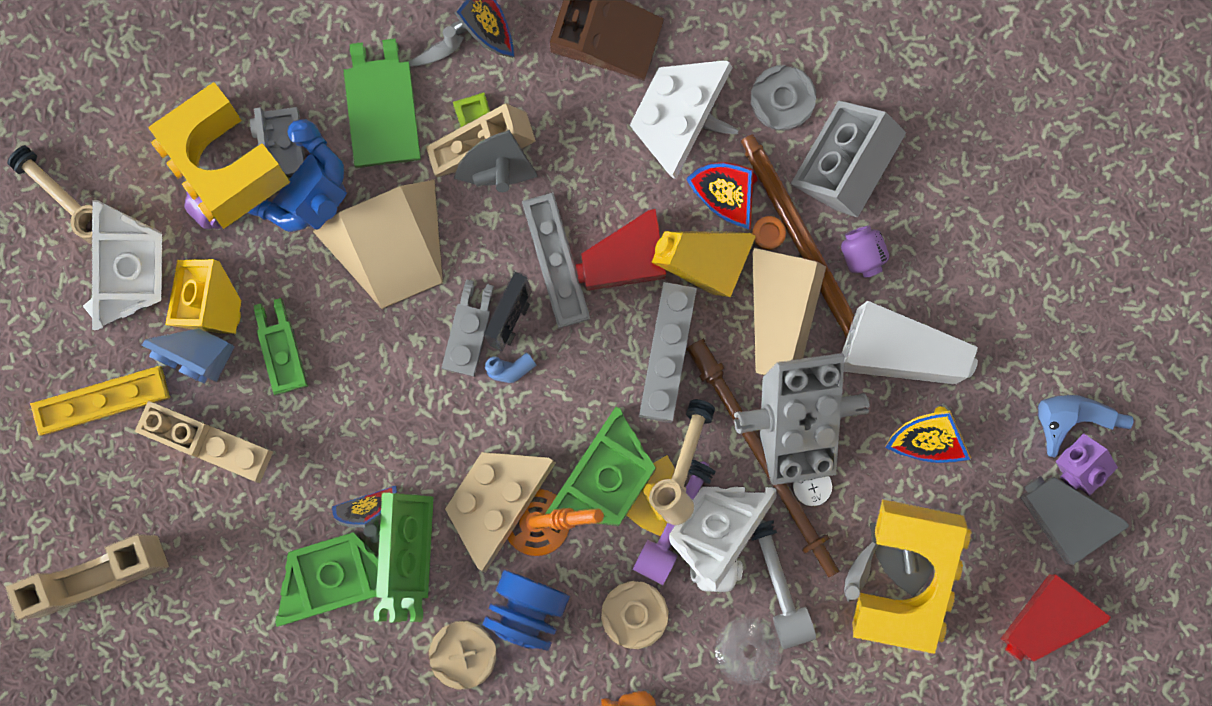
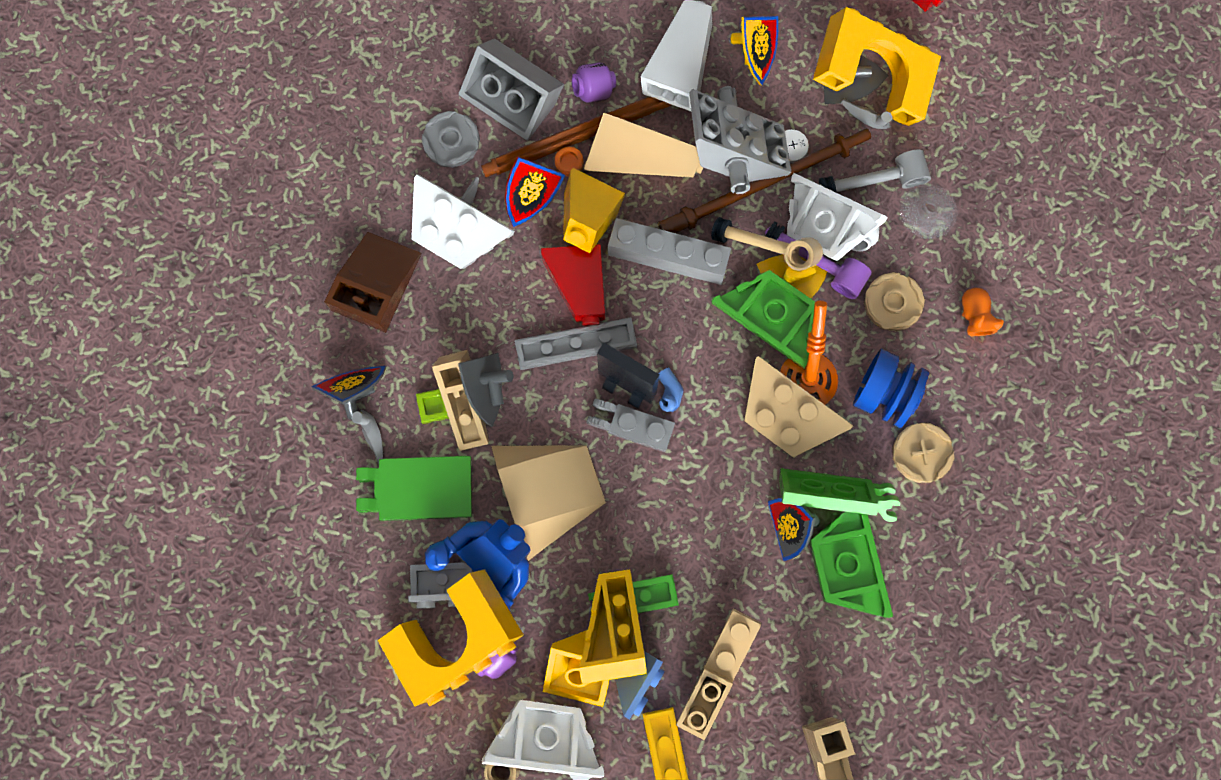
camera: 85 degrees left, 5 degrees down
(232, 322) = (614, 635): none -> yellow wedge

